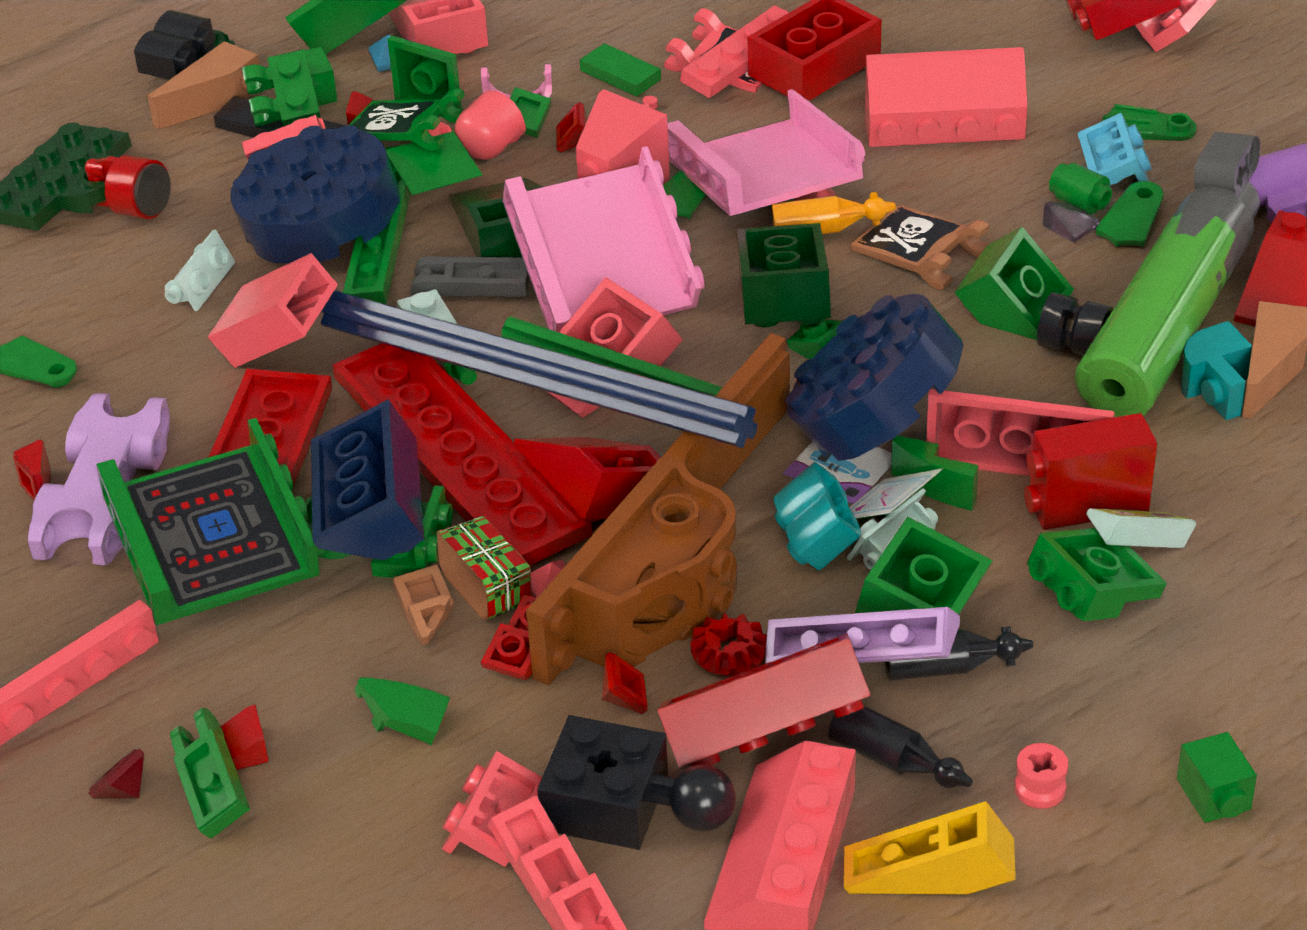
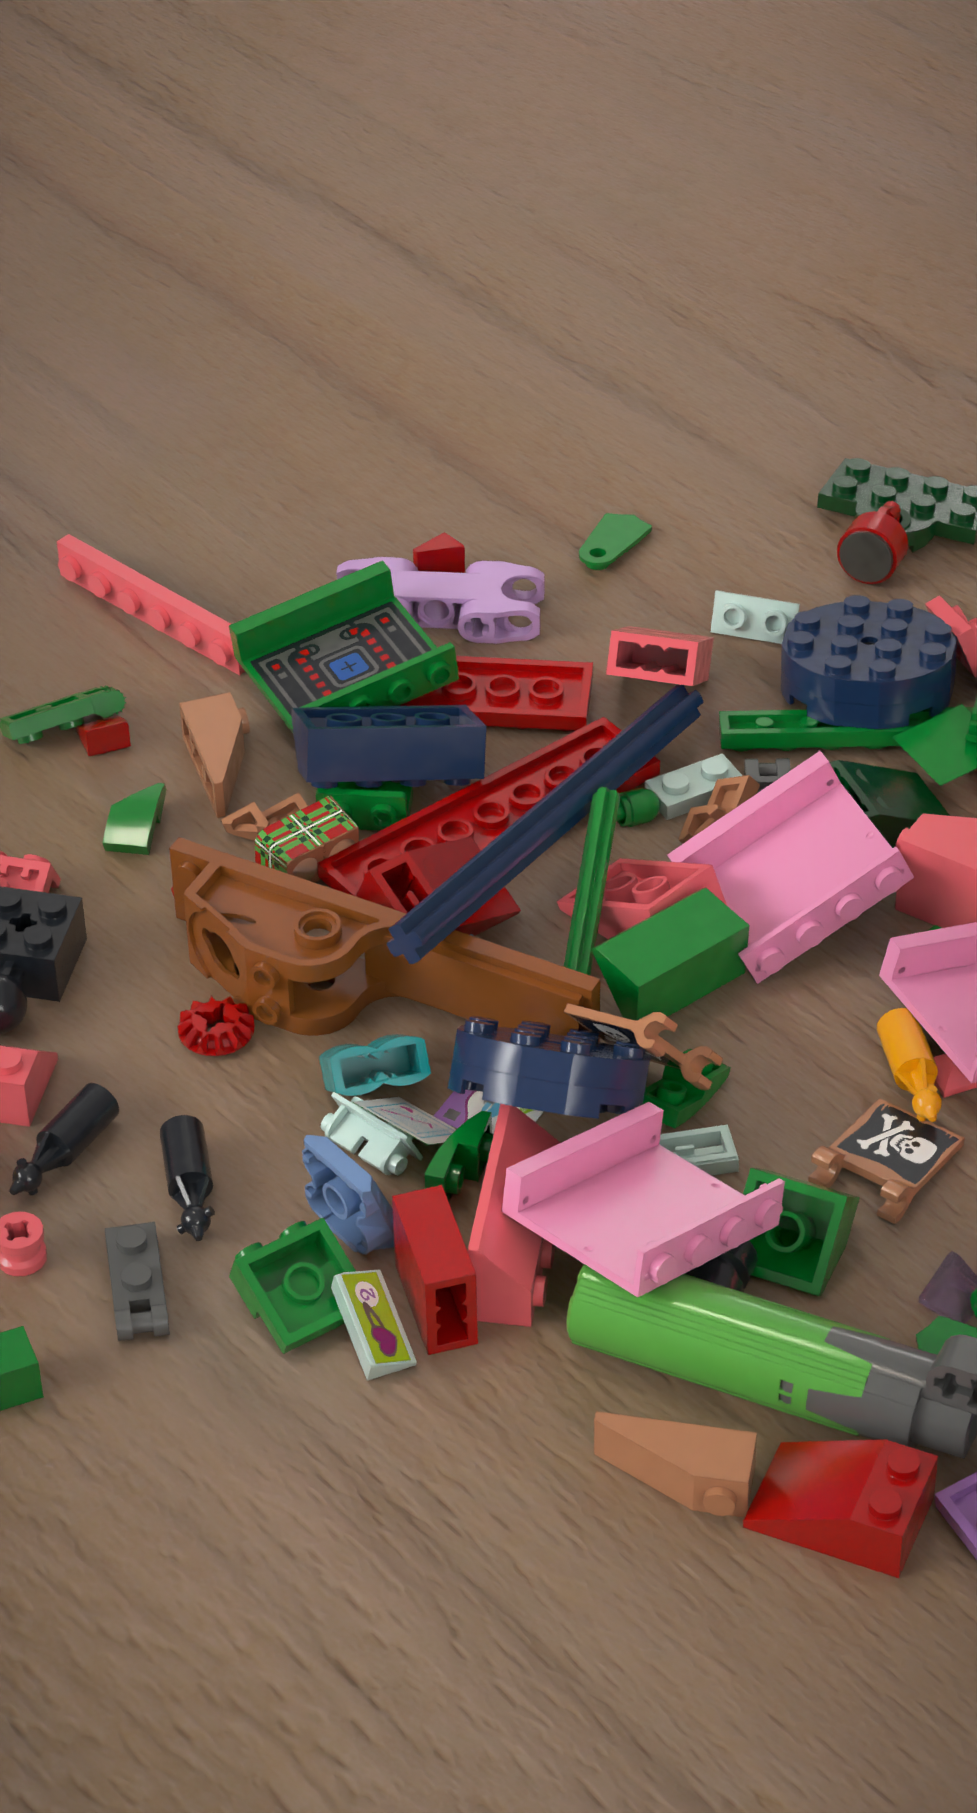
camera: 85 degrees right, 0 degrees up
(122, 779) = (62, 671): dark red slope -> none
(307, 640) = (215, 742): none -> nougat slope
(478, 299) = (725, 797): none -> nougat slope
(623, 684) = (157, 954): red slope -> none
(703, 313) = (674, 956): none -> green slope
(763, 701) = (104, 1028): slope -> none
(783, 274) = (763, 1013): dark green brick -> none
(844, 309) = (645, 1033): none -> nougat flag
(873, 635) = (190, 1097): lavender slope -> none
(922, 572) = (265, 1133): green slope -> none
(1005, 522) = (346, 1197): none -> medium blue slope
(1058, 323) = (634, 1204): none -> bright pink panel
(1081, 694) = (136, 1280): none -> dark grey plate
(1217, 366) = (657, 1391): teal brick -> none

